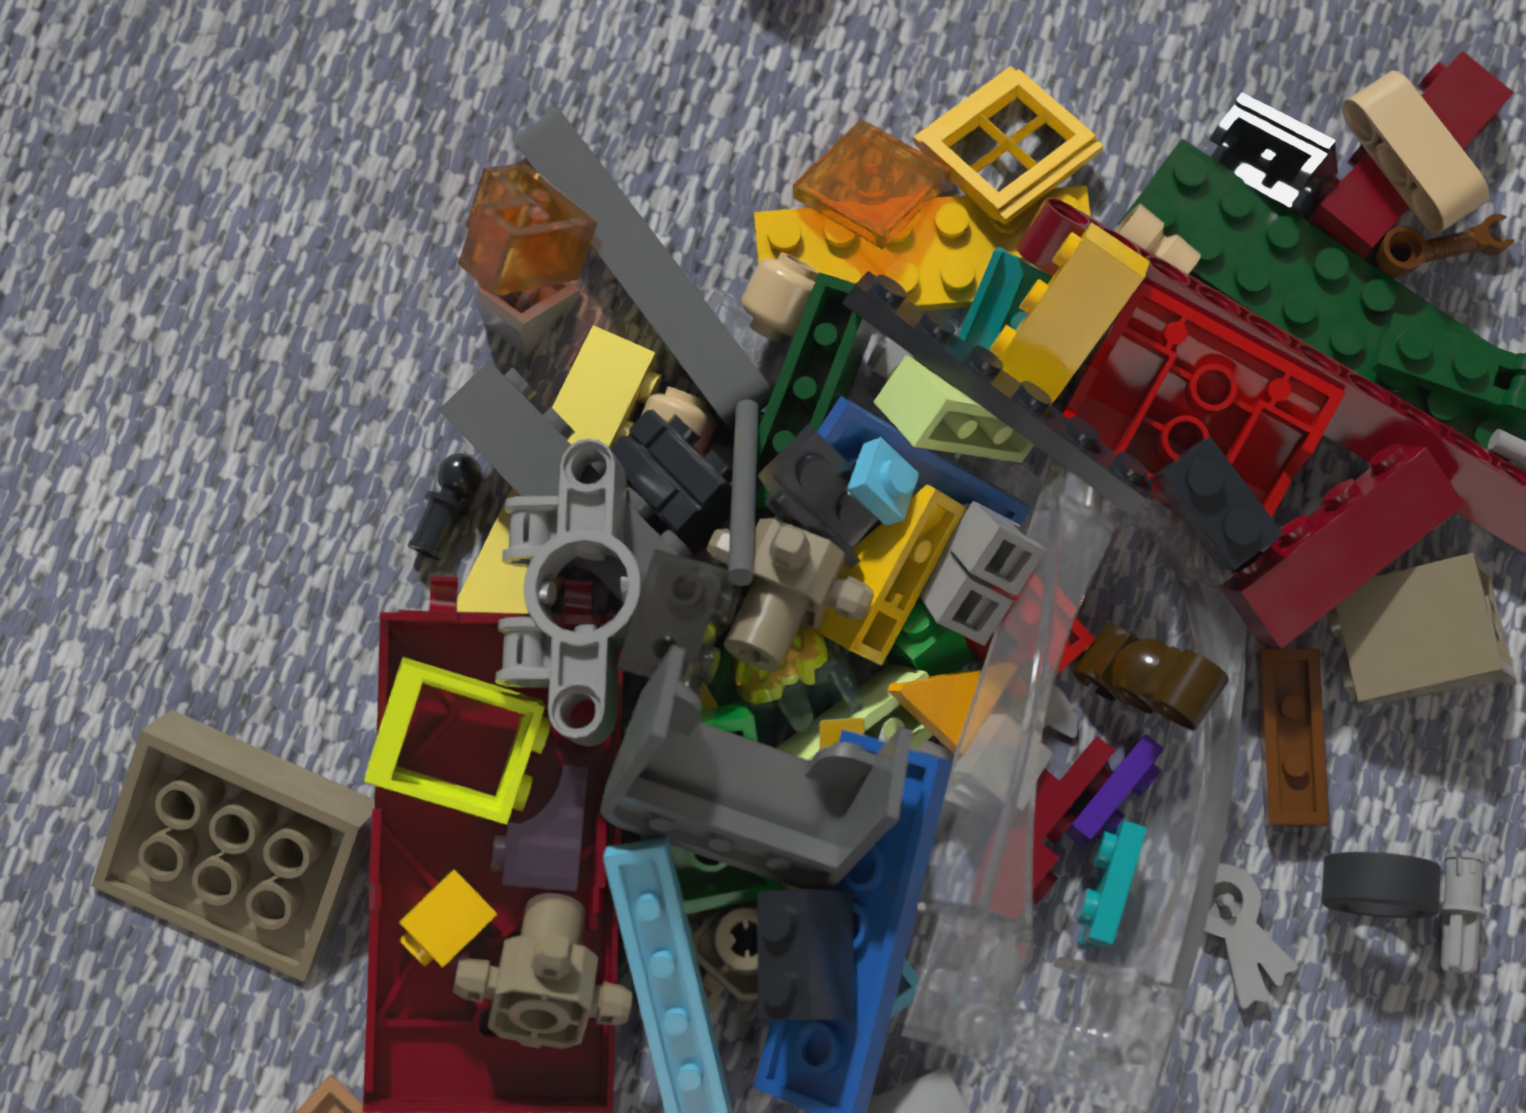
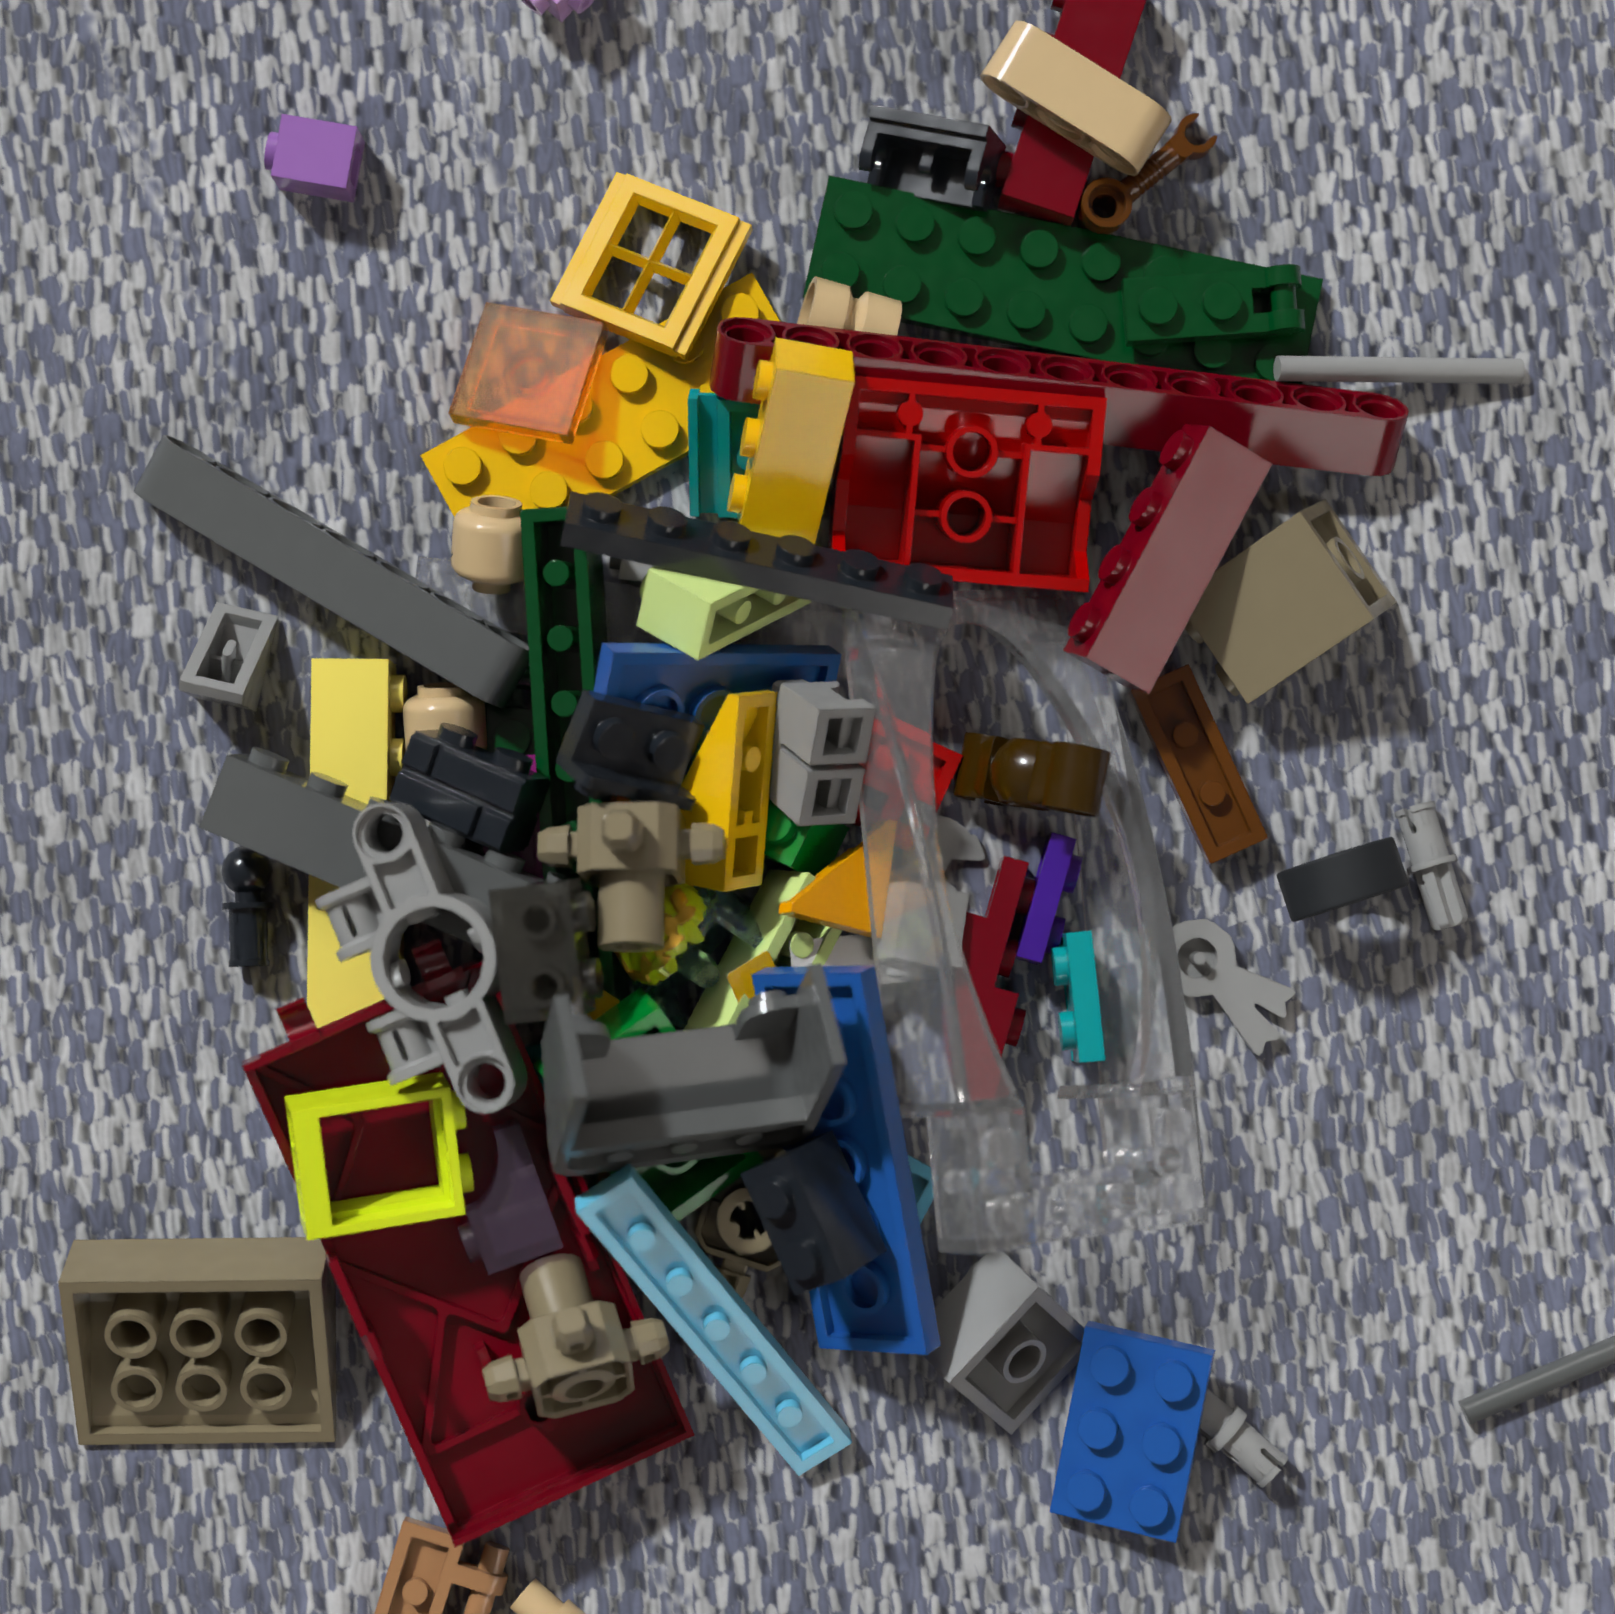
camera: 25 degrees left, 10 degrees up
(445, 921) = (448, 1330): yellow brick -> none
(523, 232) = (193, 594): clear orange brick -> none
(743, 493) = (548, 783): dark grey bar -> none
(883, 481) = (683, 710): medium azure plate -> none
(1217, 505) = (1025, 577): black brick -> none

